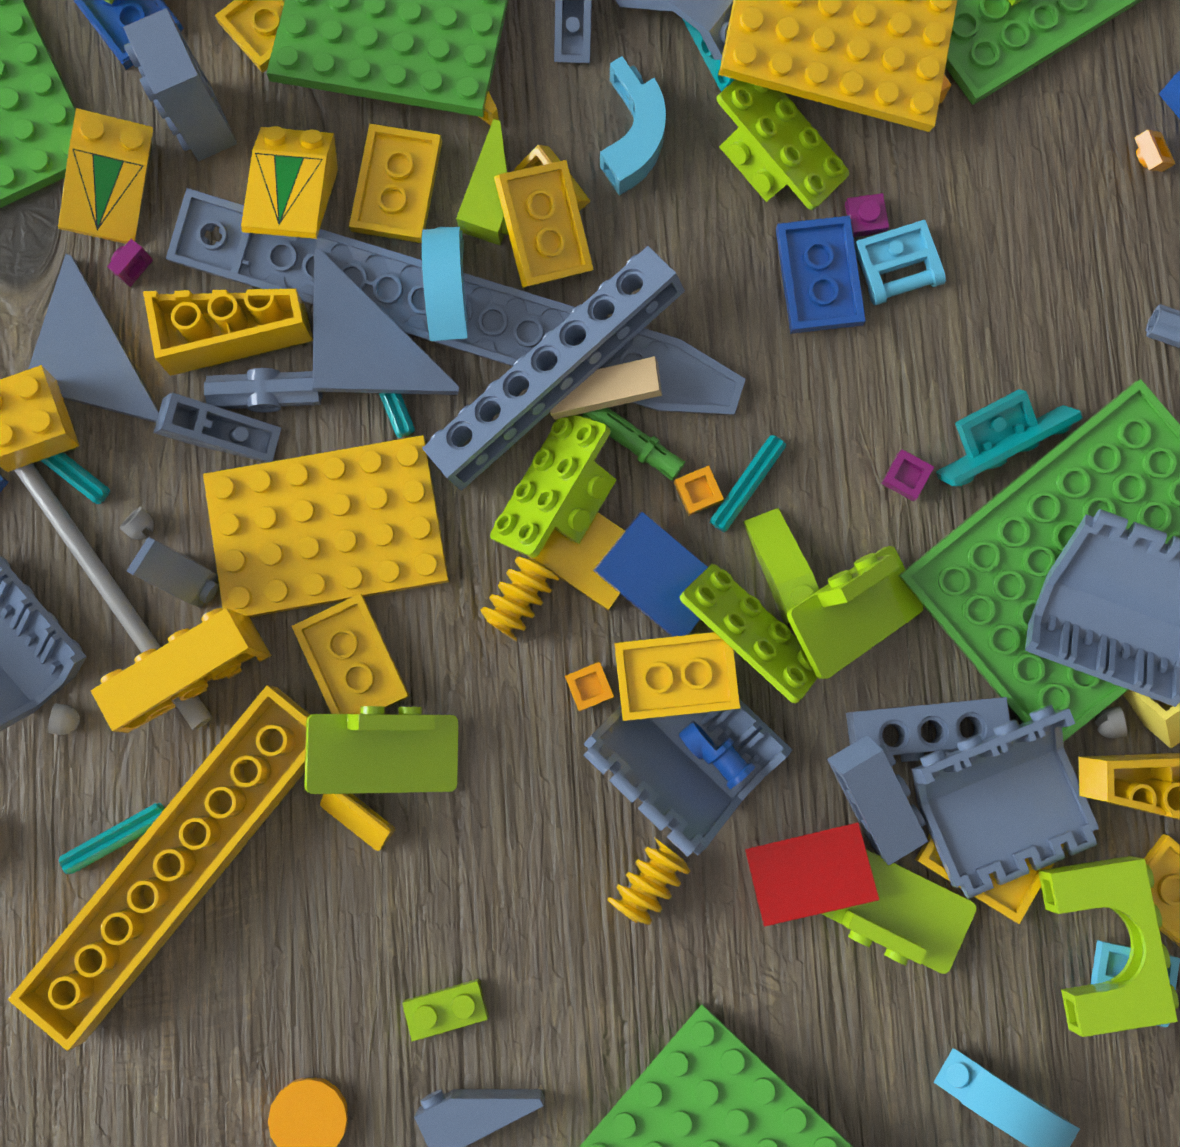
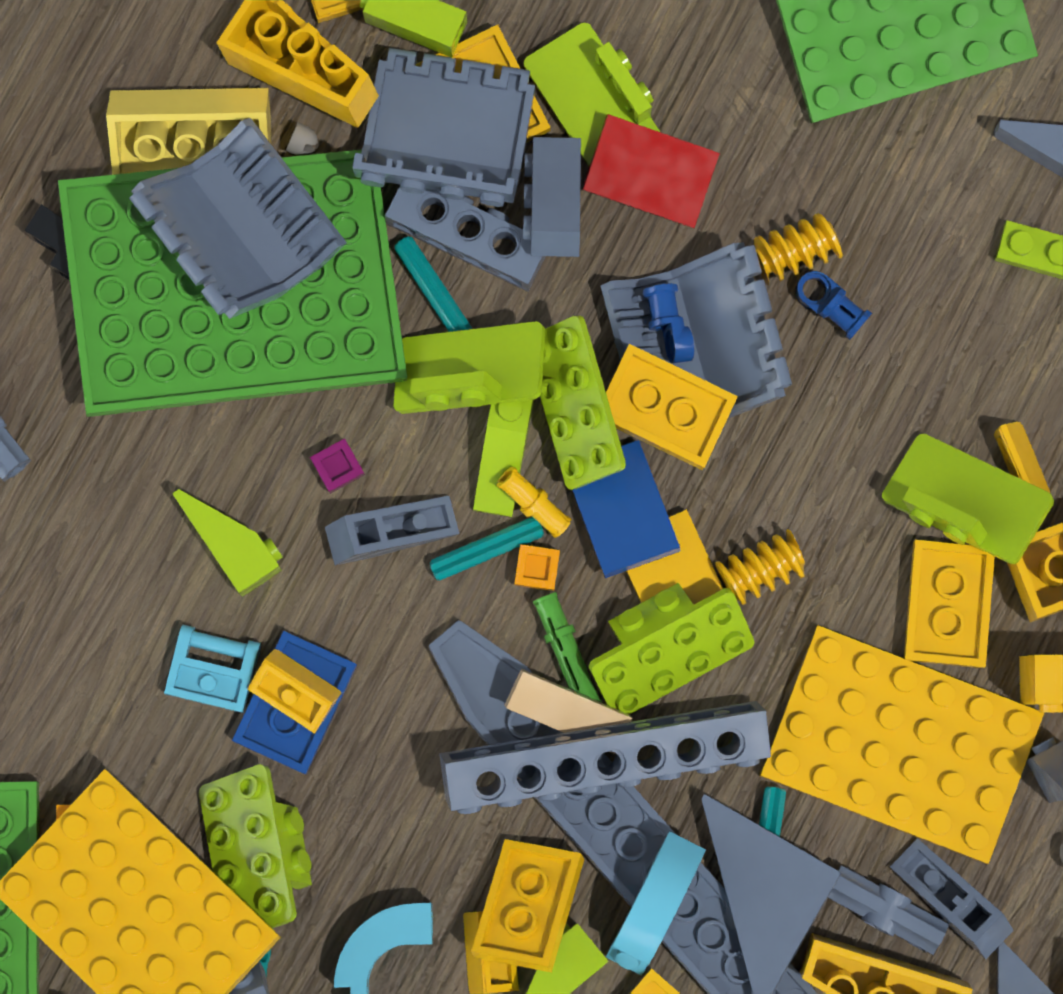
camera: 150 degrees left, 0 degrees up
(589, 686) = (746, 450): light orange plate -> none
(593, 857) = (833, 304): none -> blue connector
(734, 538) = (533, 502): none -> yellow pin
(827, 279) = (294, 690): none -> yellow slope
(831, 451) = (390, 529): none -> sand blue slope
(867, 214) = (211, 735): magenta plate -> none
(926, 667) = (431, 285): none -> teal axle
(943, 361) = (236, 548): none -> lime slope
(1001, 432) = (226, 450): teal bracket -> none

